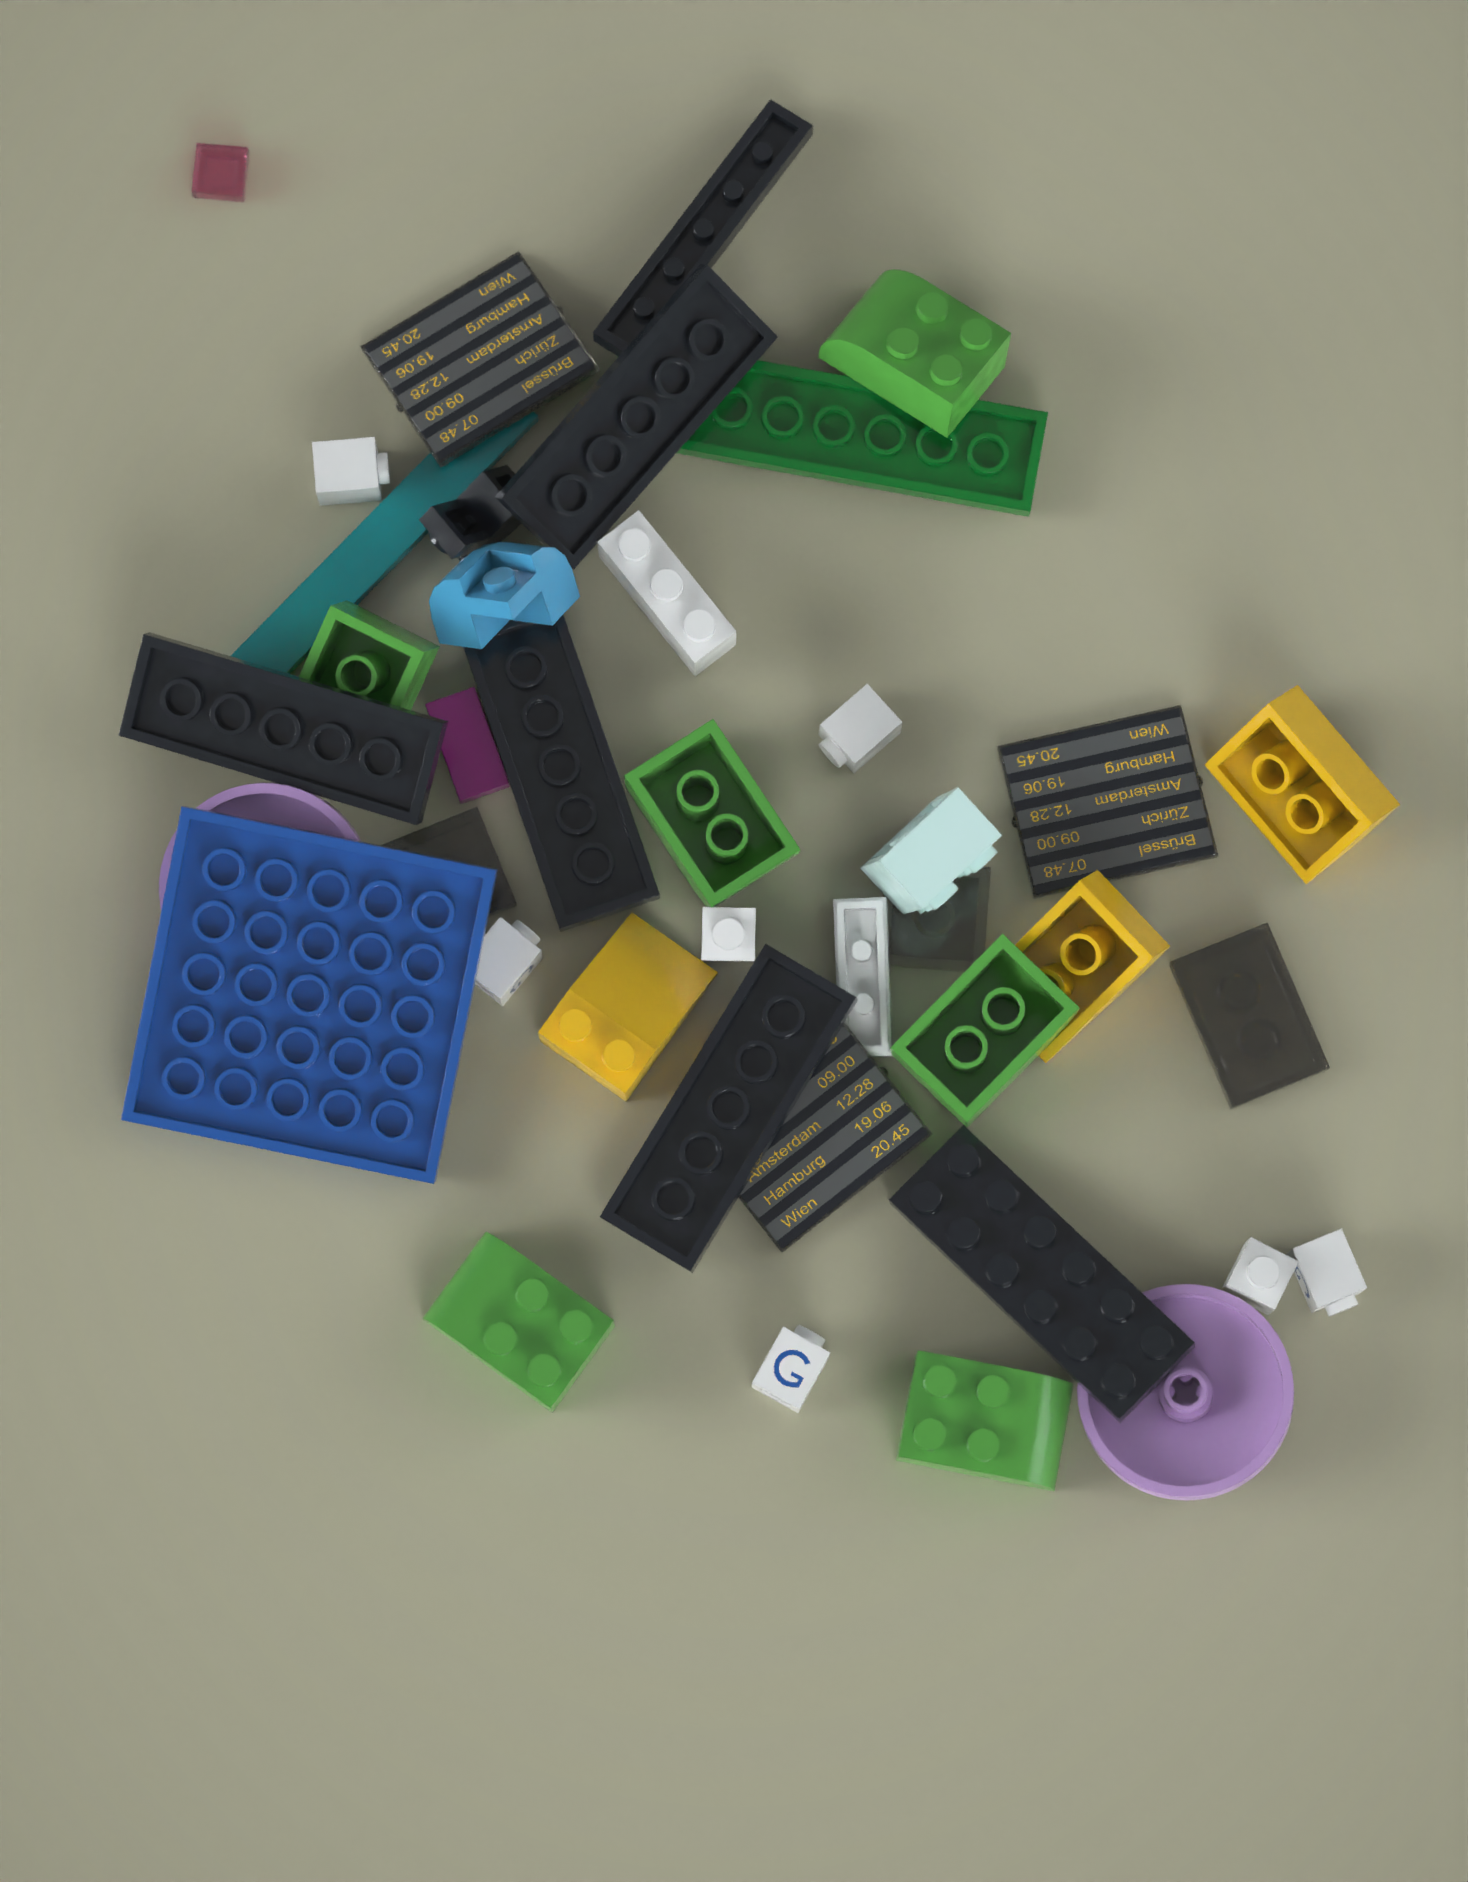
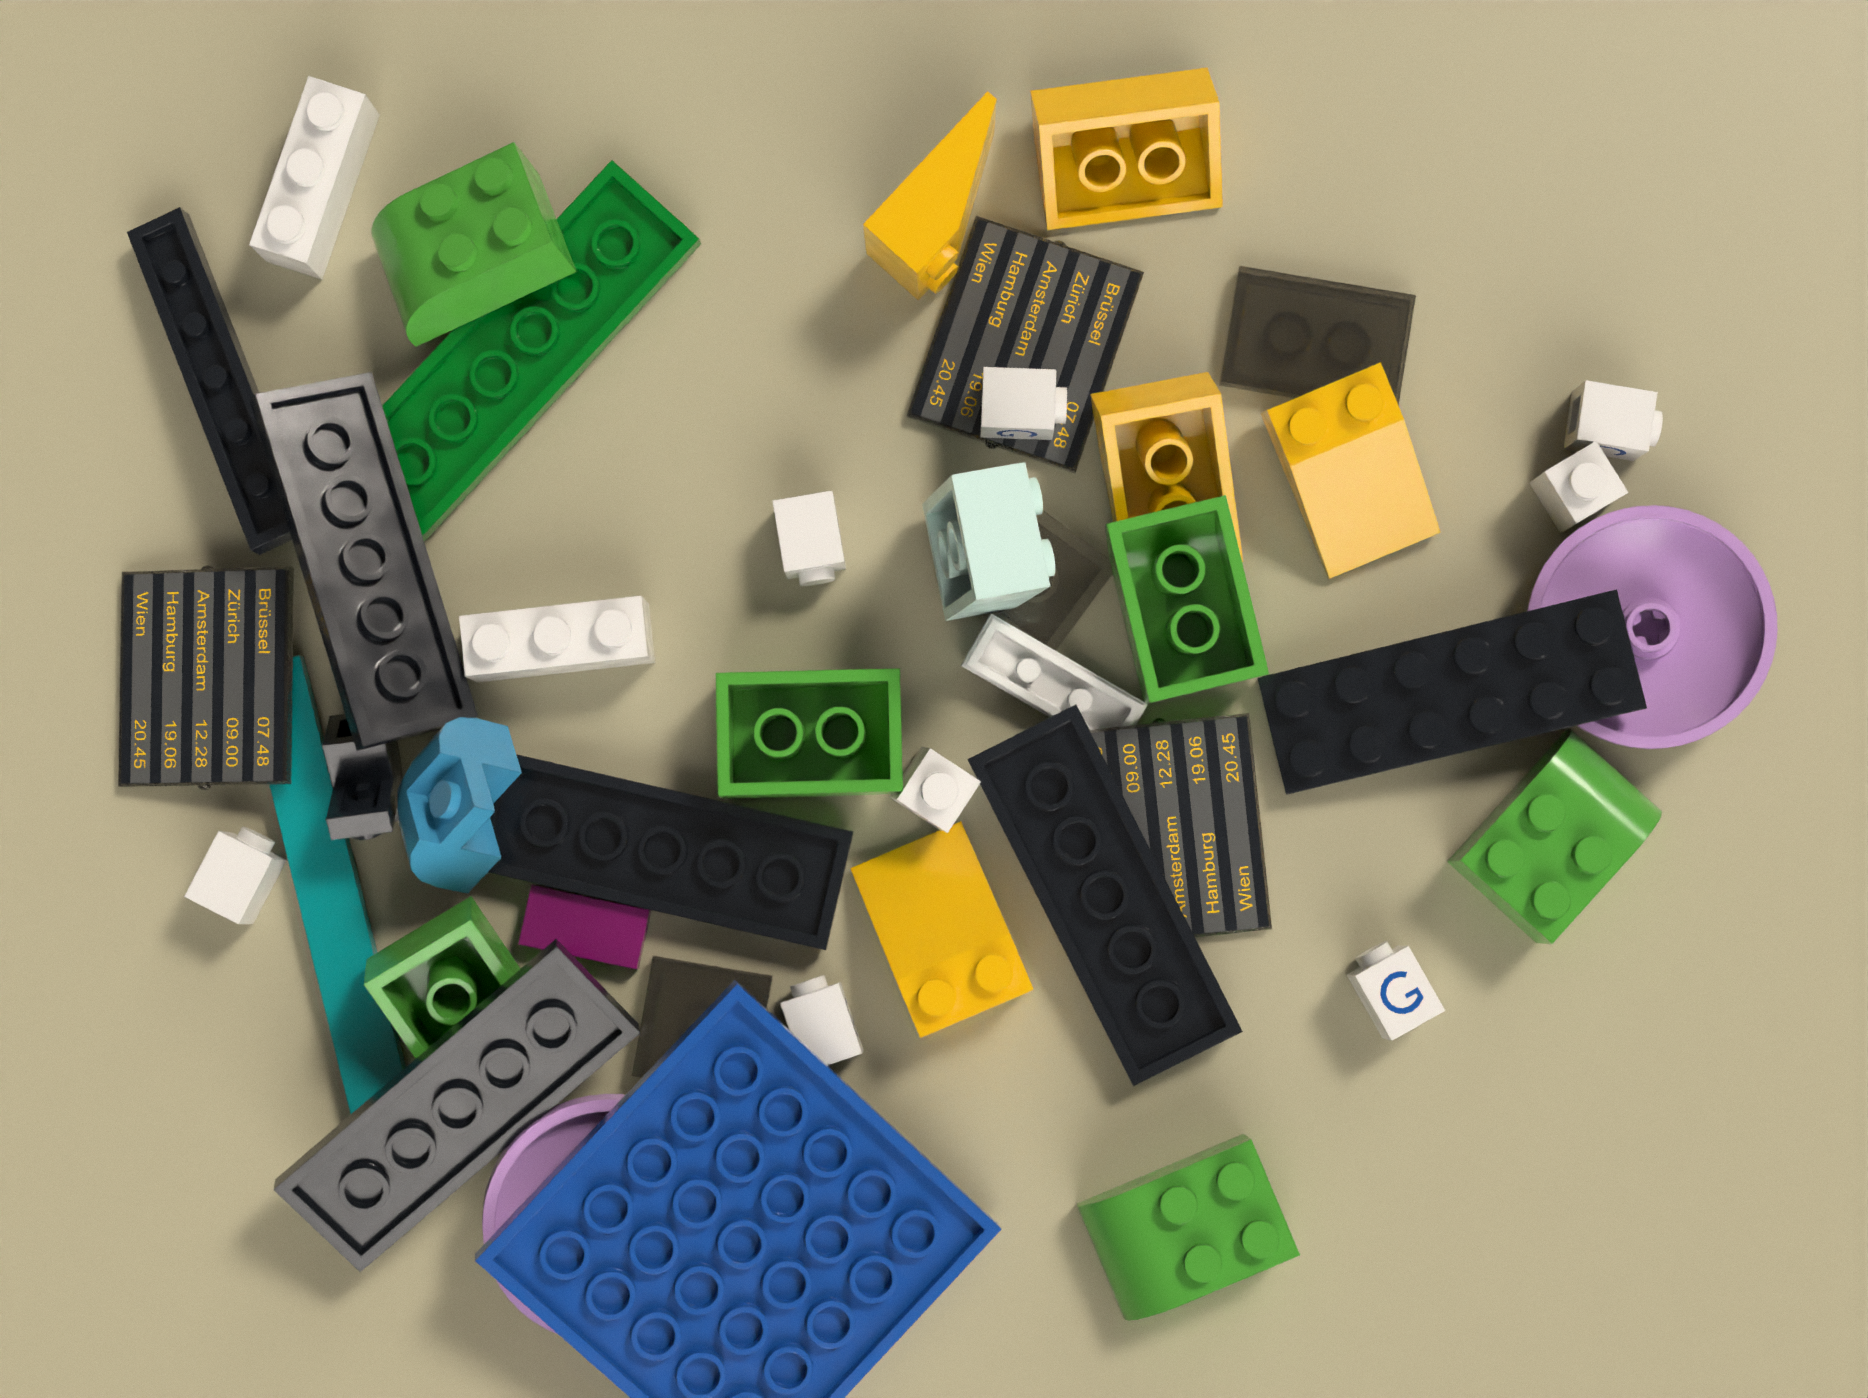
camera: 55 degrees left, 5 degrees up
(896, 208) = (315, 177): none -> white brick
(1056, 821) = (1021, 403): none -> white brick
(1158, 667) = (925, 219): none -> yellow slope
(1163, 1098) = (1352, 470): none -> yellow slope

